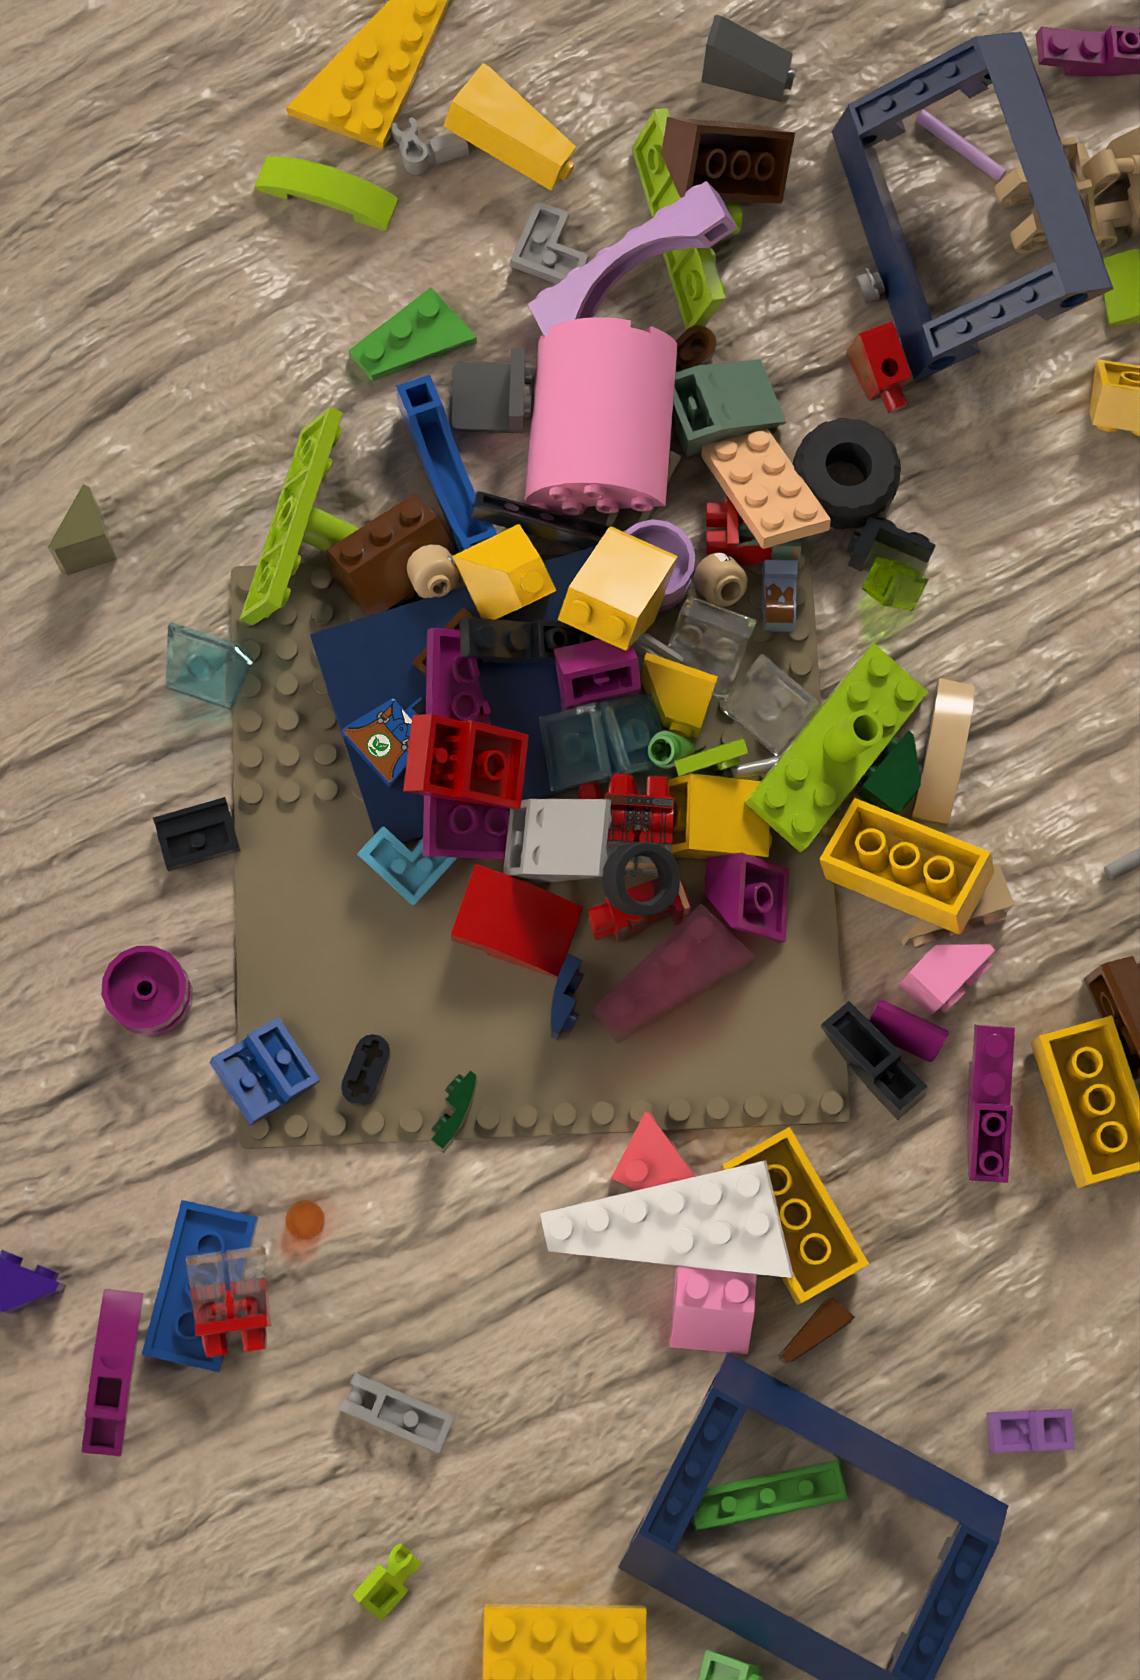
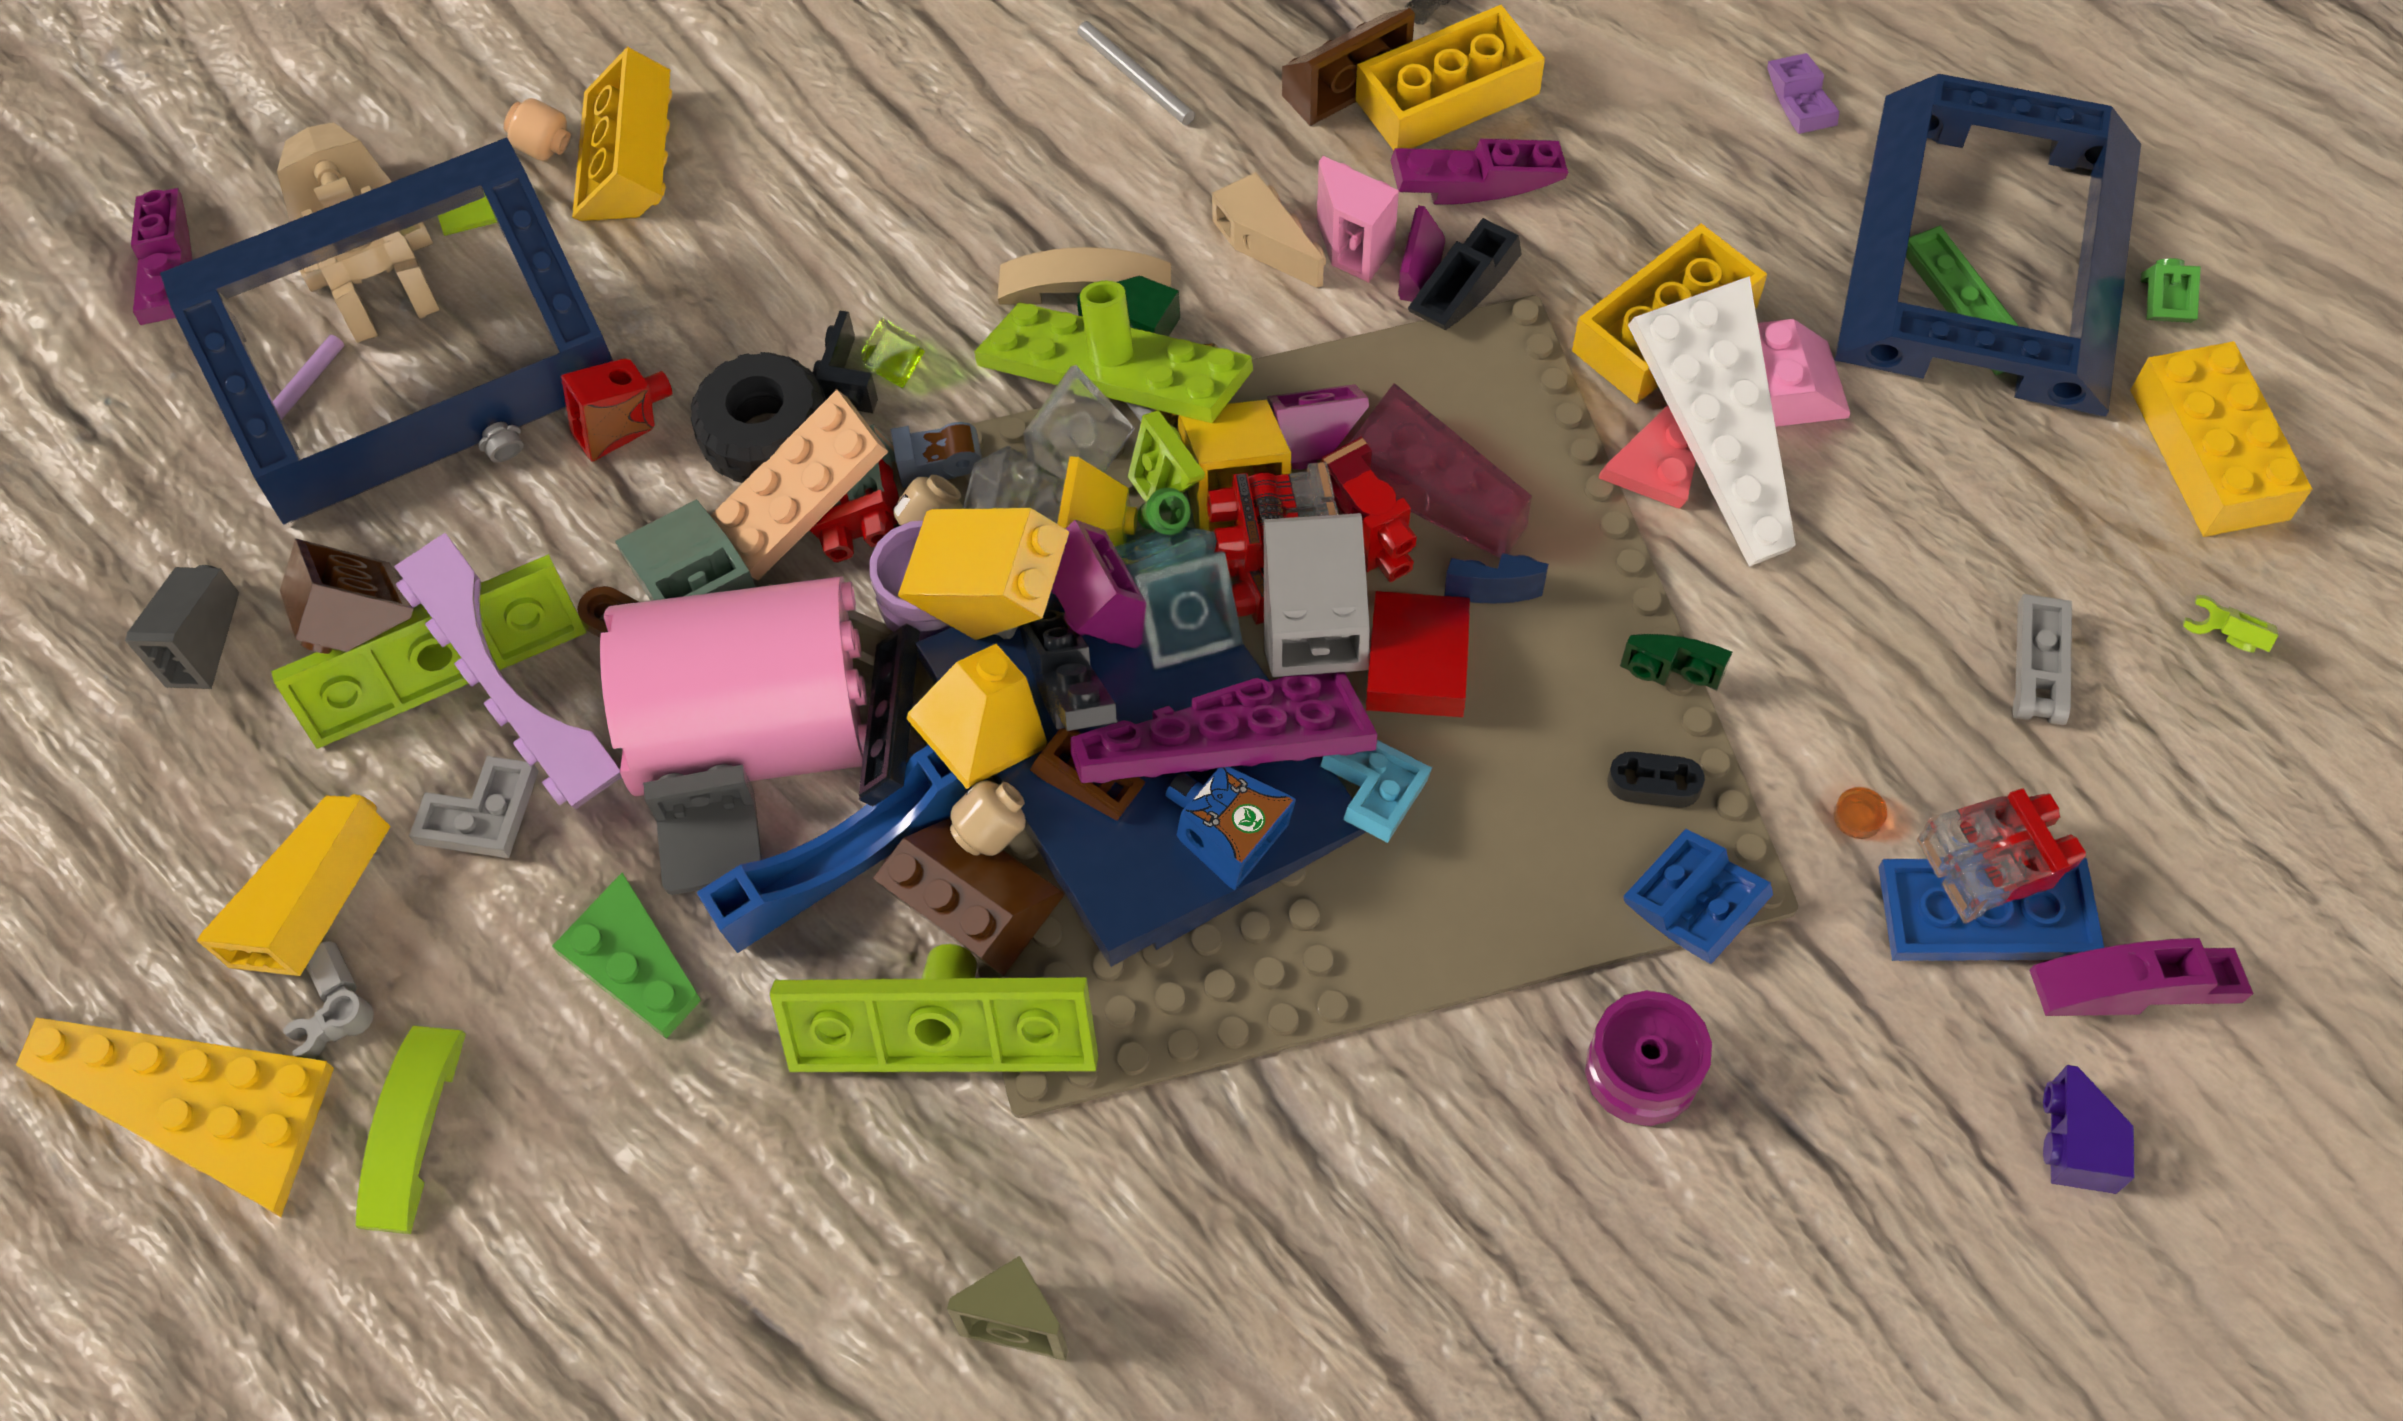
camera: 95 degrees left, 15 degrees down
(196, 834) = (1410, 1060): black plate -> none
(205, 666) = (1176, 1100): clear light blue slope -> none
(465, 761) = (1249, 709): red slope -> none
(668, 878) = (1368, 488): black tyre -> none
(821, 1325) = (1784, 275): reddish brown slope -> none
(907, 866) = (1244, 260): yellow brick -> none

